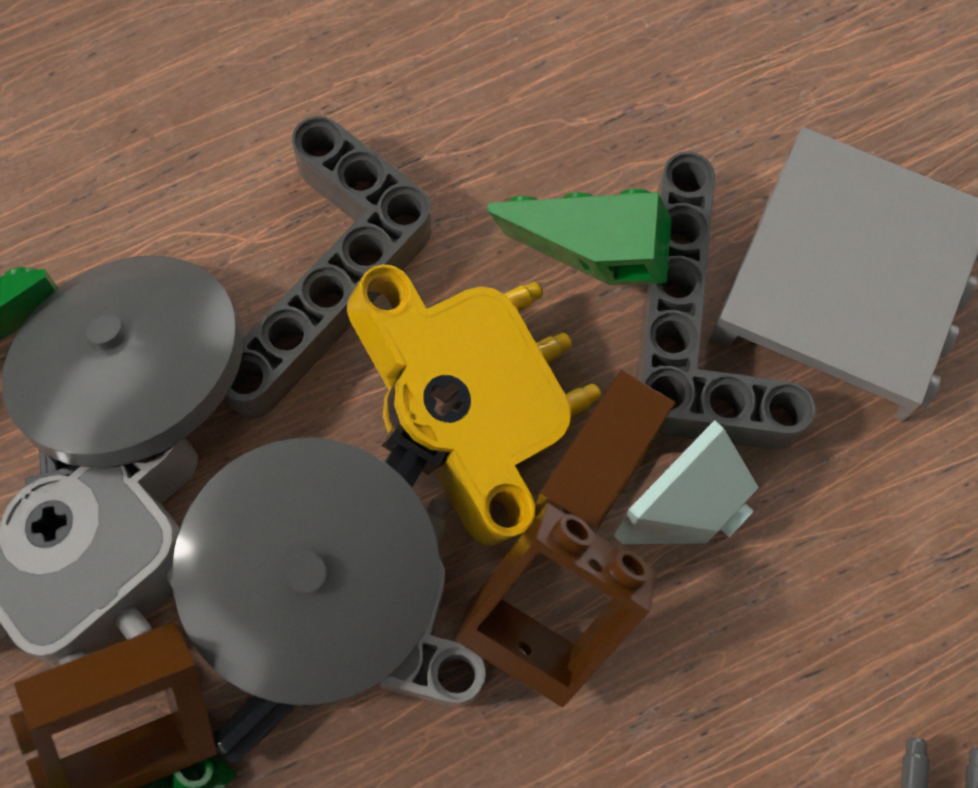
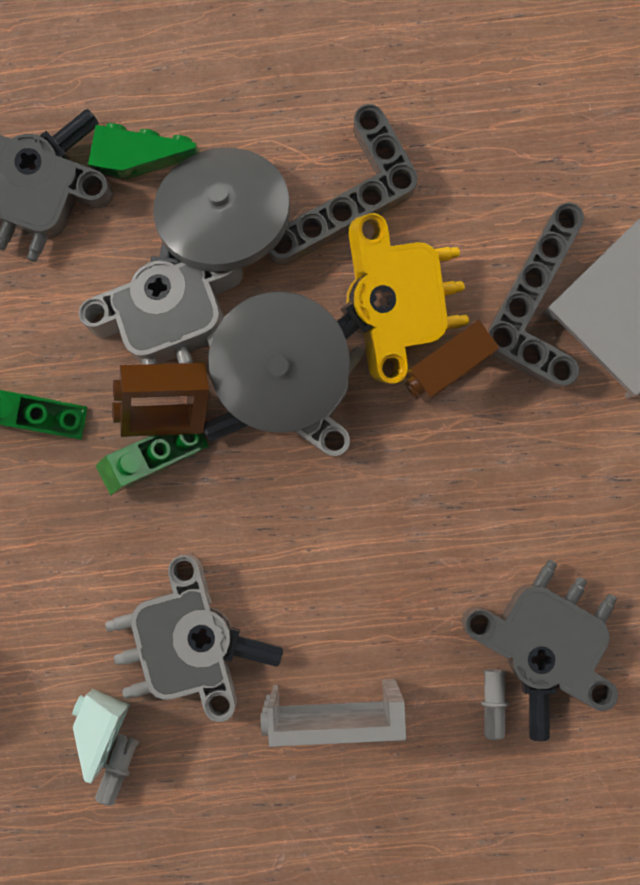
camera: 30 degrees right, 15 degrees up
(553, 663) = (385, 453): reddish brown window -> none
(606, 236) = (507, 239): green slope -> none
(694, 496) = (493, 398): light aqua slope -> none

